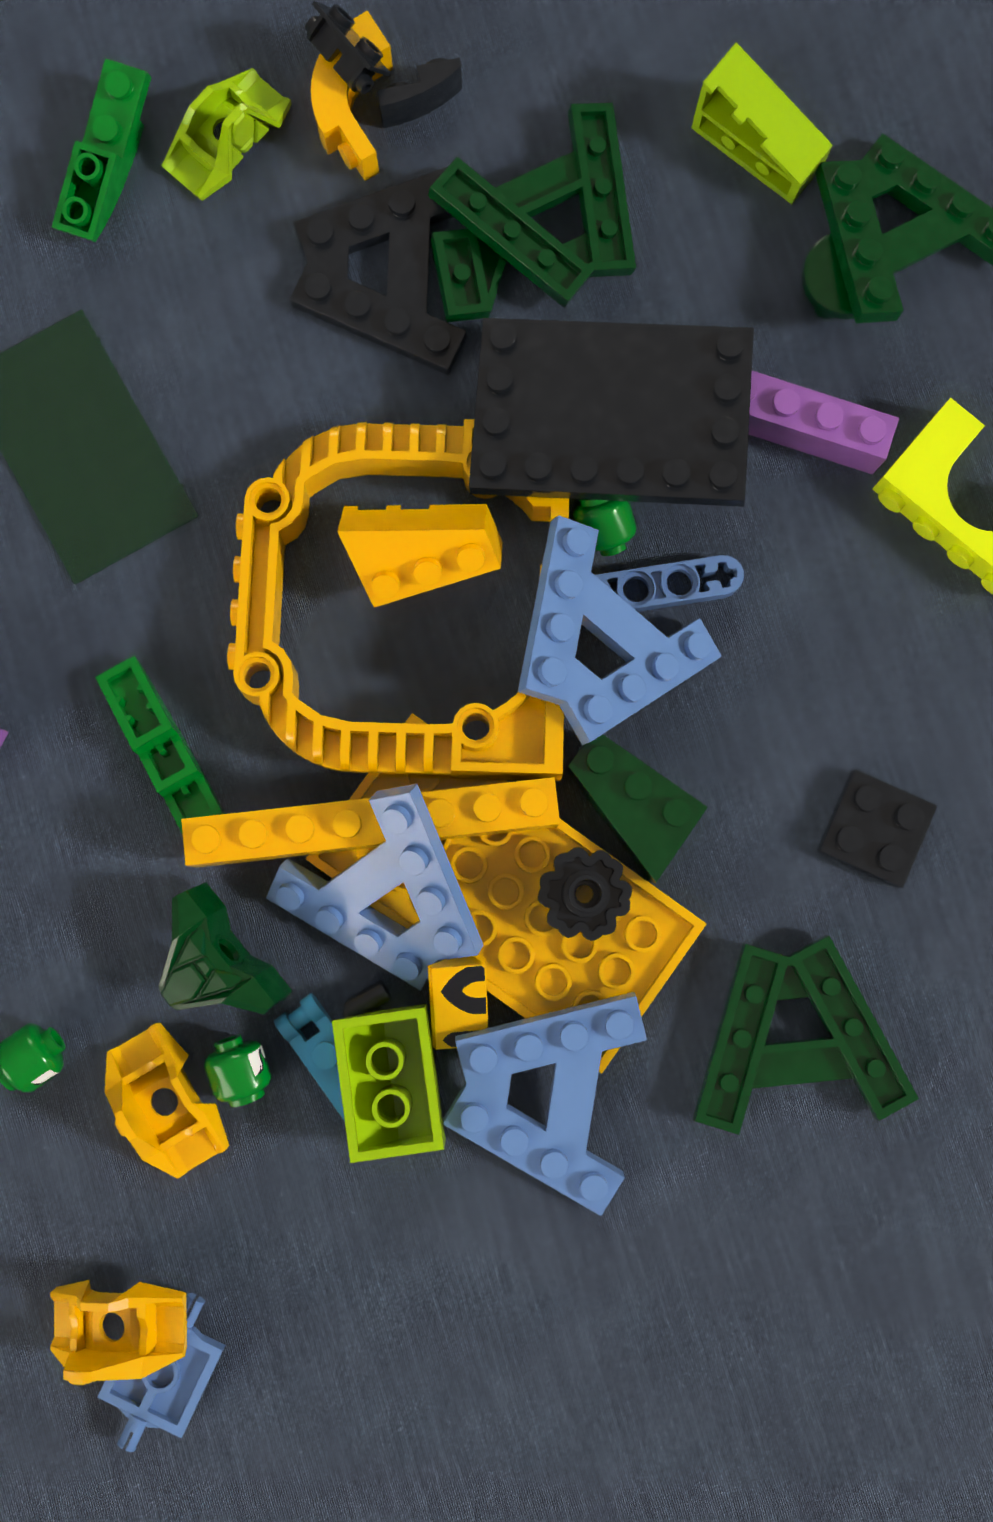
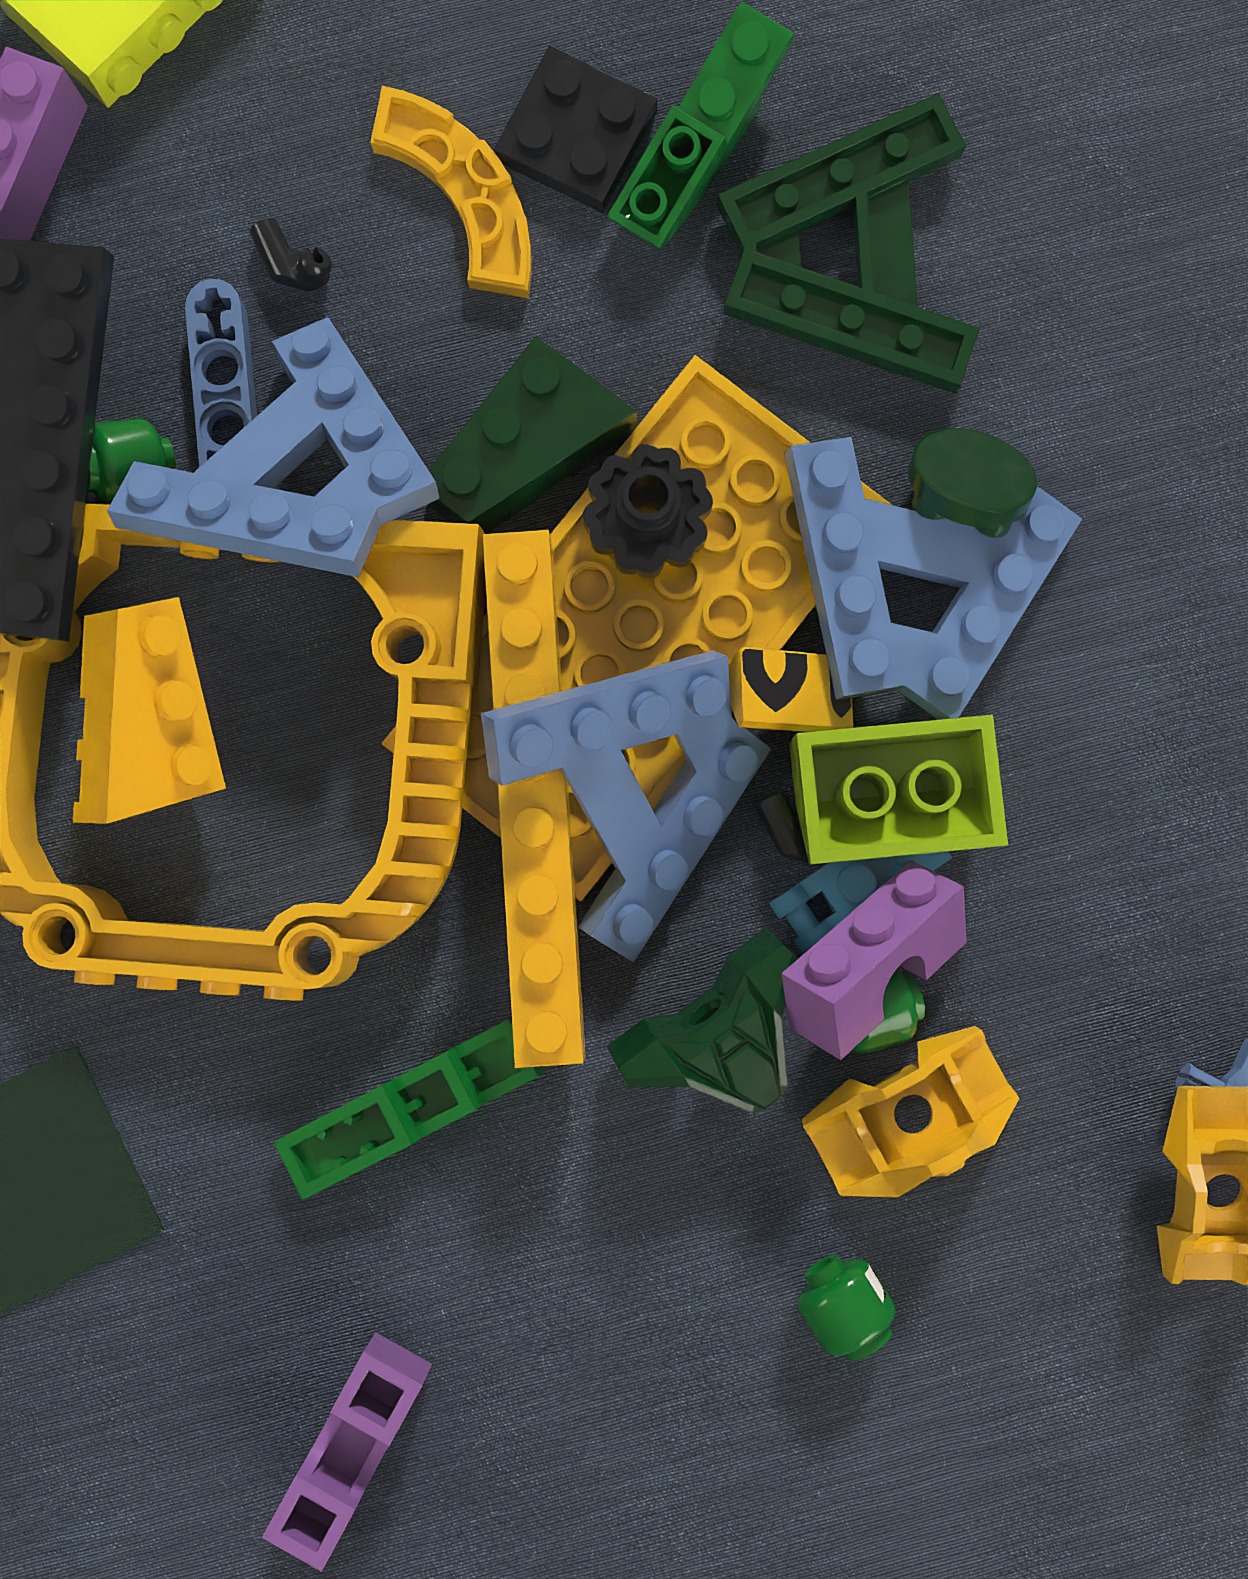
camera: 85 degrees left, 0 degrees up
(248, 1045) = (841, 981): none -> medium lavender arch
(622, 1131) = (971, 480): none -> dark green tile
(759, 626) = (286, 265): none -> black arm
(833, 754) = (470, 177): none -> yellow tile
(878, 921) = (703, 129): none -> green slope

